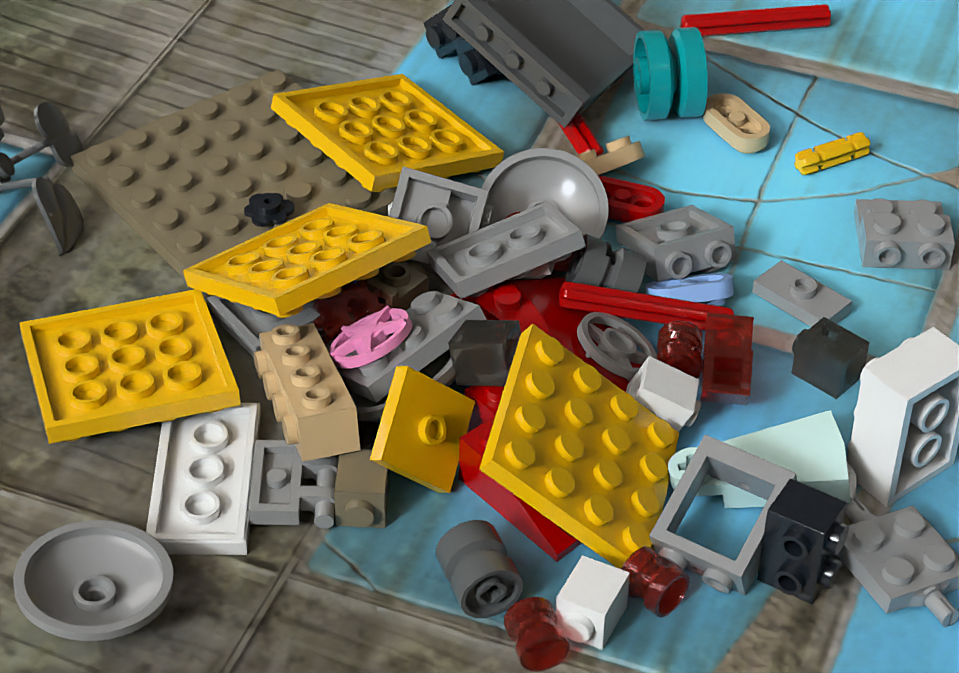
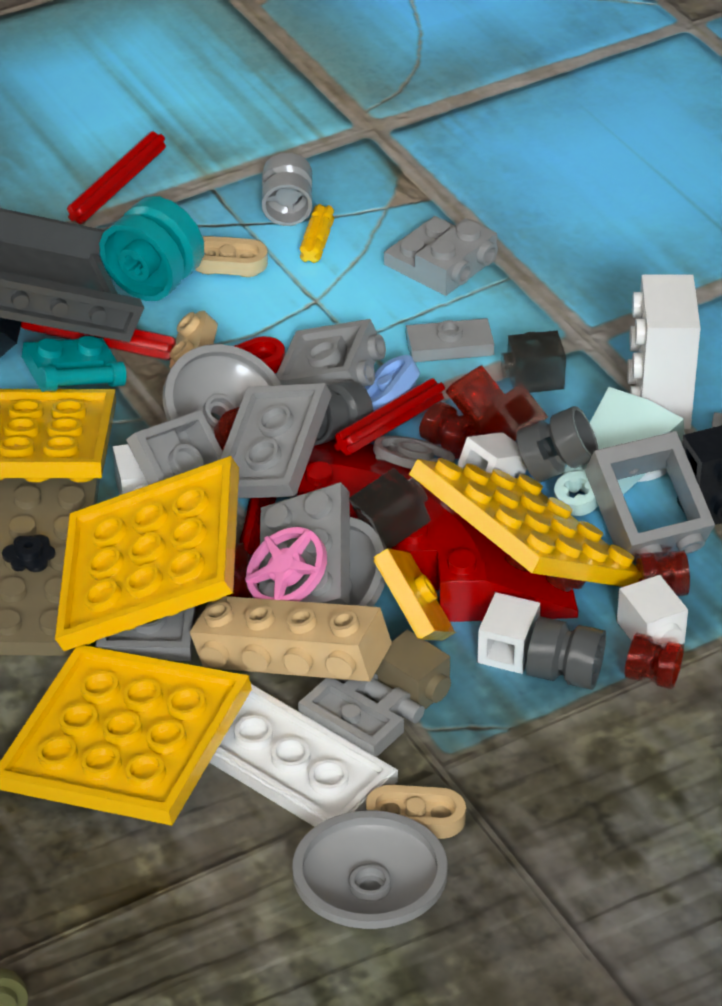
camera: 50 degrees left, 0 degrees up
(214, 586) = (433, 807): none -> tan plate
(473, 503) = (507, 632): none -> white brick
(505, 115) = (72, 363): none -> teal plate
(704, 408) = (552, 446): none -> dark grey wheel
(851, 104) = (287, 189): none -> light grey wheel

